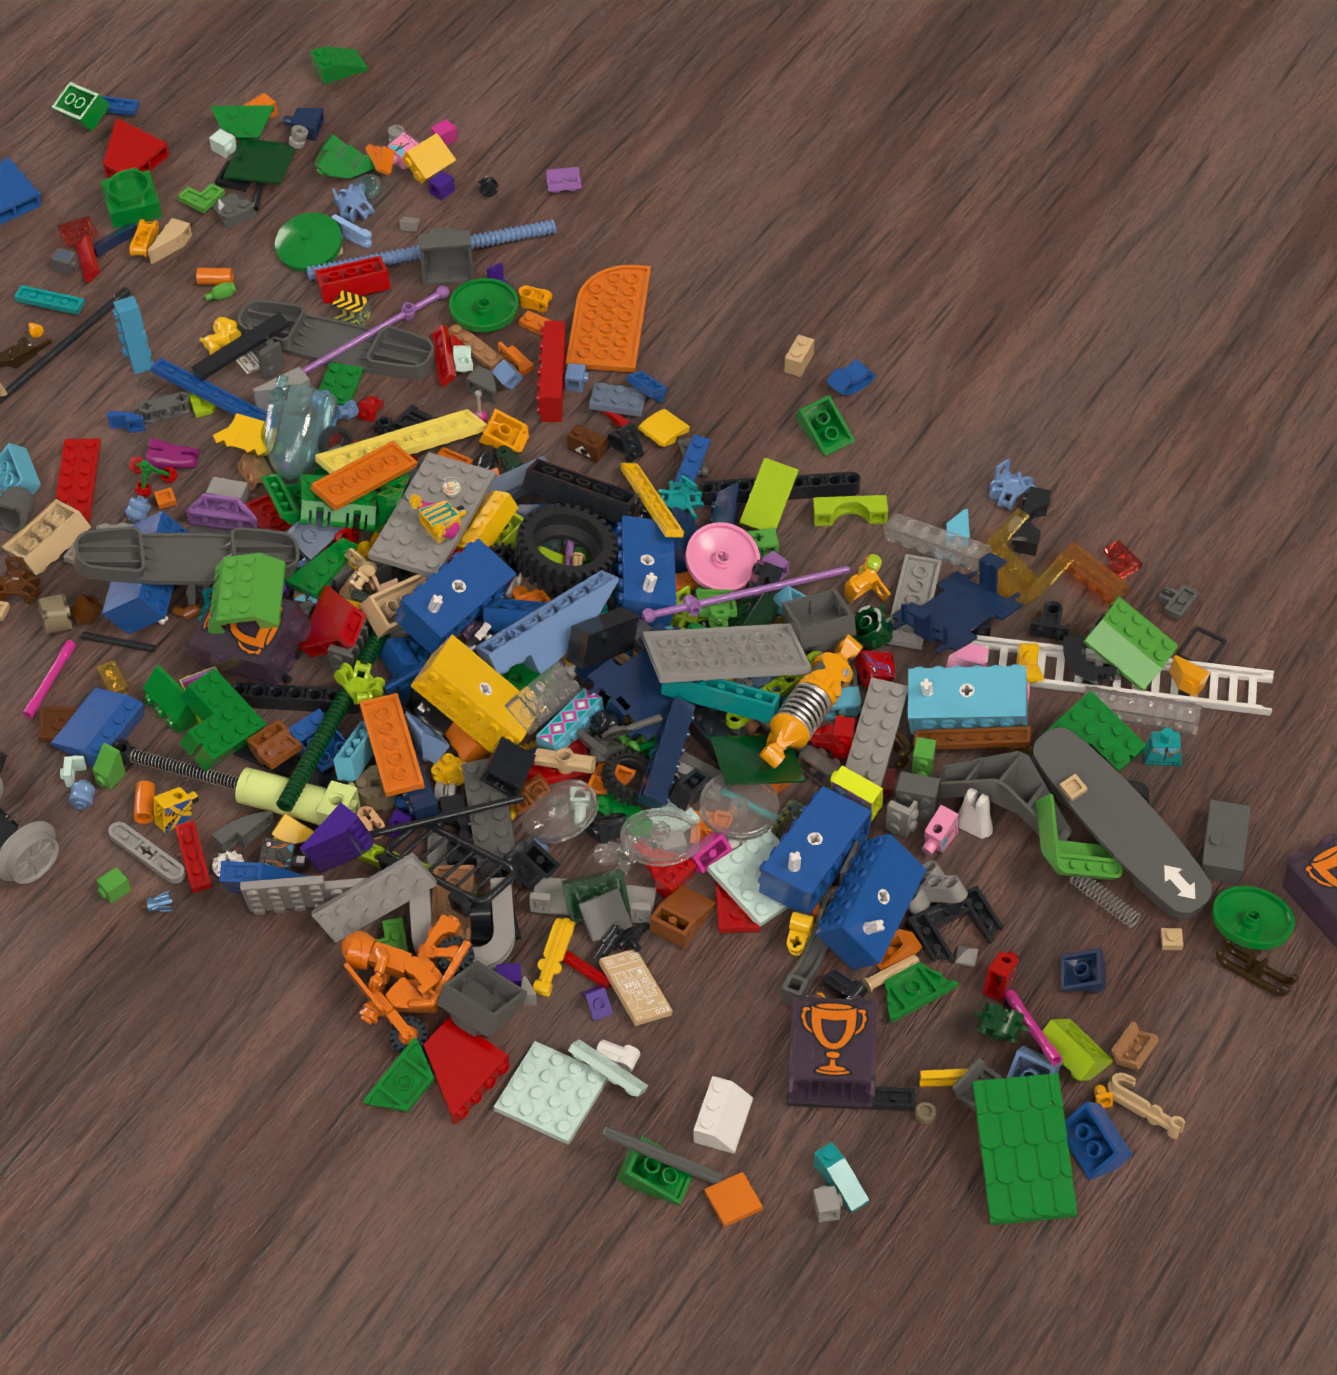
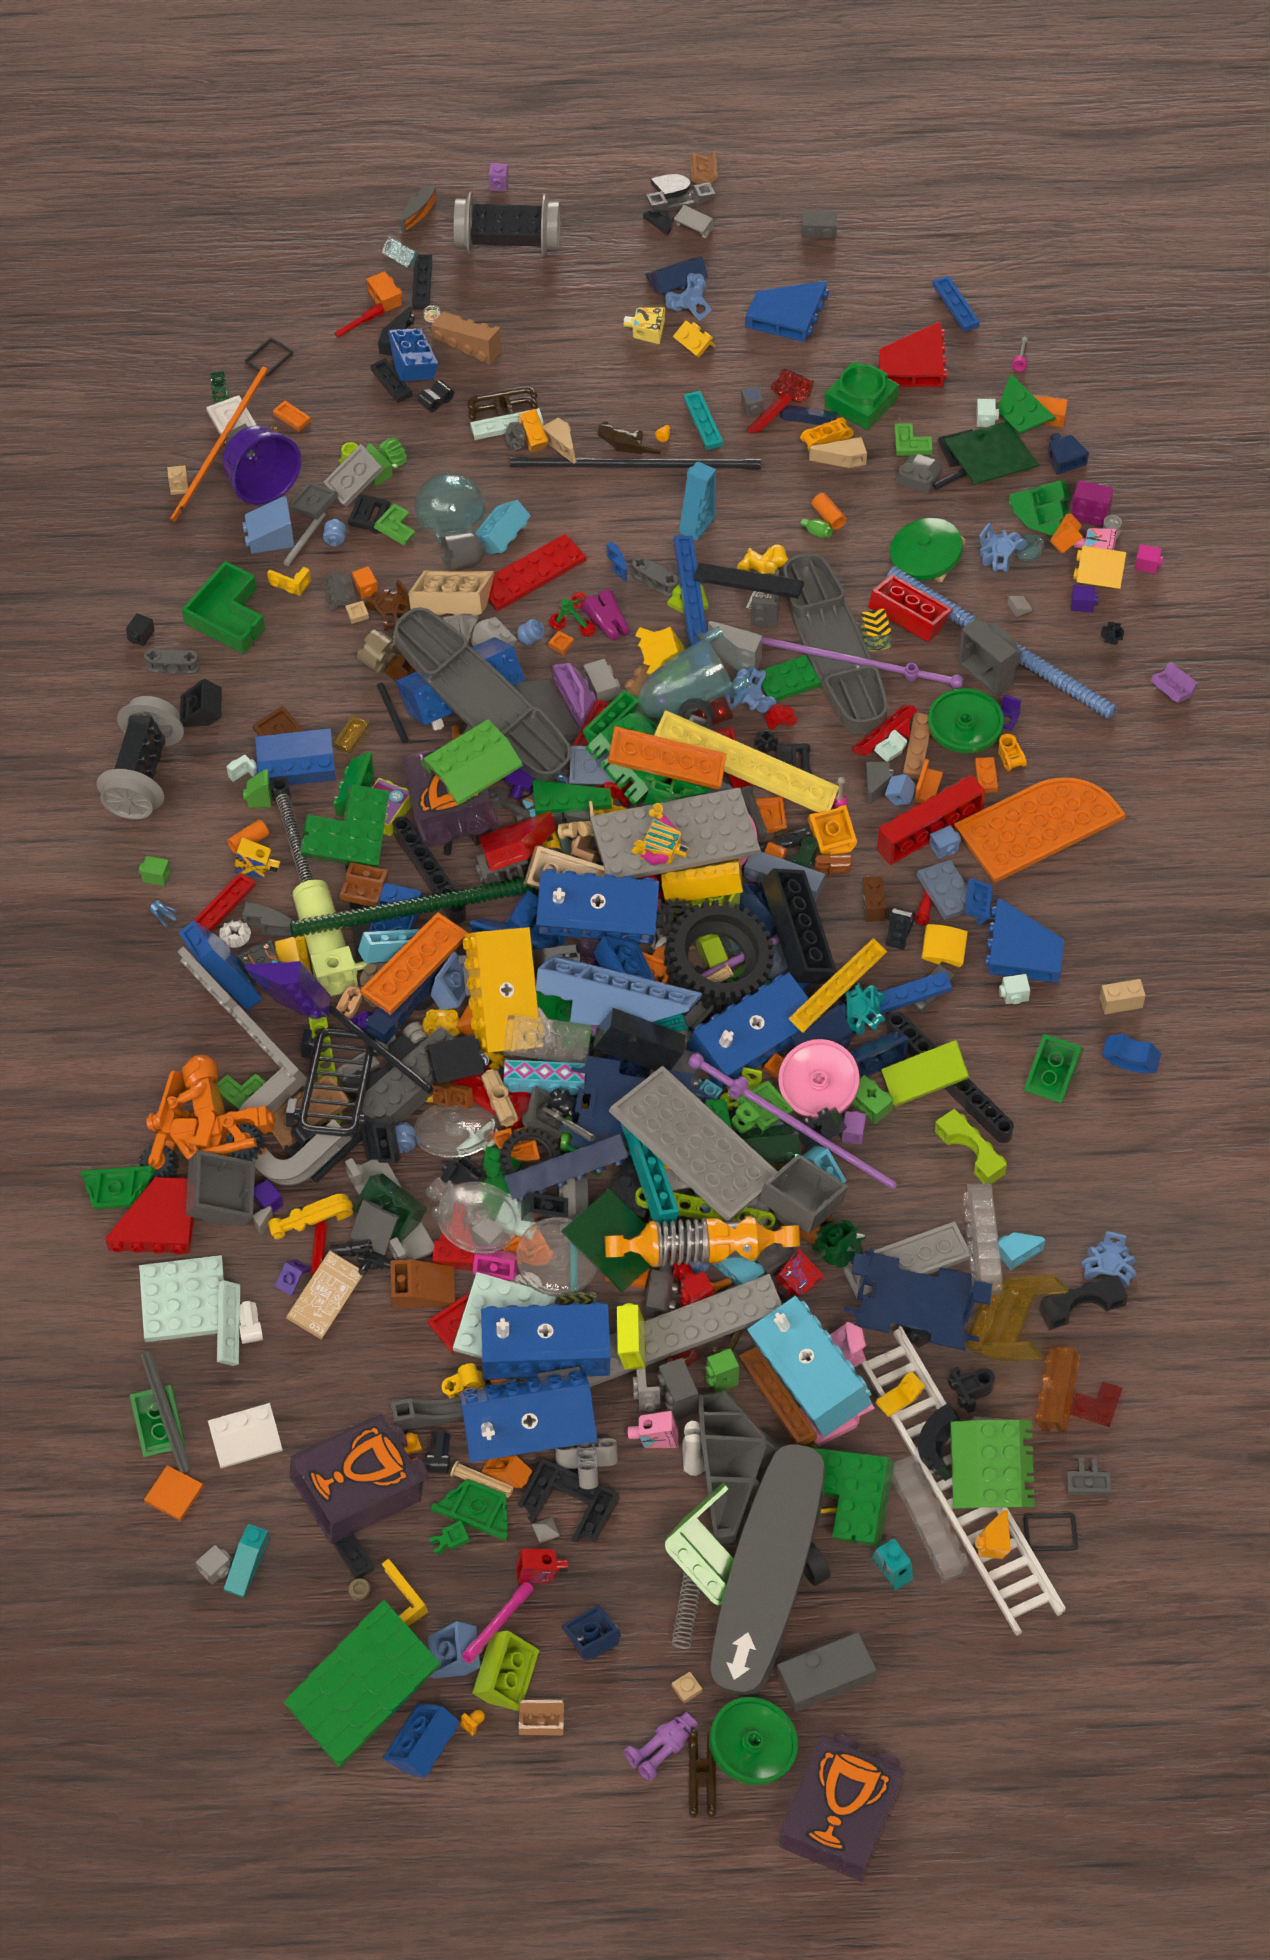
camera: 55 degrees right, 5 degrees up
(34, 703) = (350, 686): dark pink piece -> none
(81, 106) = (931, 289): green slope -> none
(82, 795) = (222, 791): medium blue piece -> none
(134, 843) = (201, 887): light grey piece -> none
(194, 100) = (1020, 359): none -> dark pink hinge
(298, 136) = (1042, 459): light grey wheel -> none
(336, 63) = (1161, 426): green slope -> none
(353, 232) = (968, 571): light blue hinge -> none
(357, 687) = (458, 901): lime piece -> none
(368, 129) = (1092, 503): none -> magenta brick
(374, 897) = (253, 1050): light grey plate -> none
(451, 485) = (711, 827): clear tile -> none
(534, 448) = (833, 864): none -> dark orange arm
(706, 385) = (1022, 946): none -> blue slope
(739, 410) = (1015, 989): none -> light aqua brick
(866, 580) = (890, 1206): light orange piece -> none
(928, 1019) = (453, 1537): none -> green plate
(963, 1087) = (408, 1606): dark grey bracket -> none
(1000, 1023) = (480, 1593): dark green brick -> none
(1073, 787) = (762, 1504): tan plate -> none
(1141, 1106) = (482, 1756): tan piece -> none
(1209, 971) = (670, 1736): none -> medium lavender piece

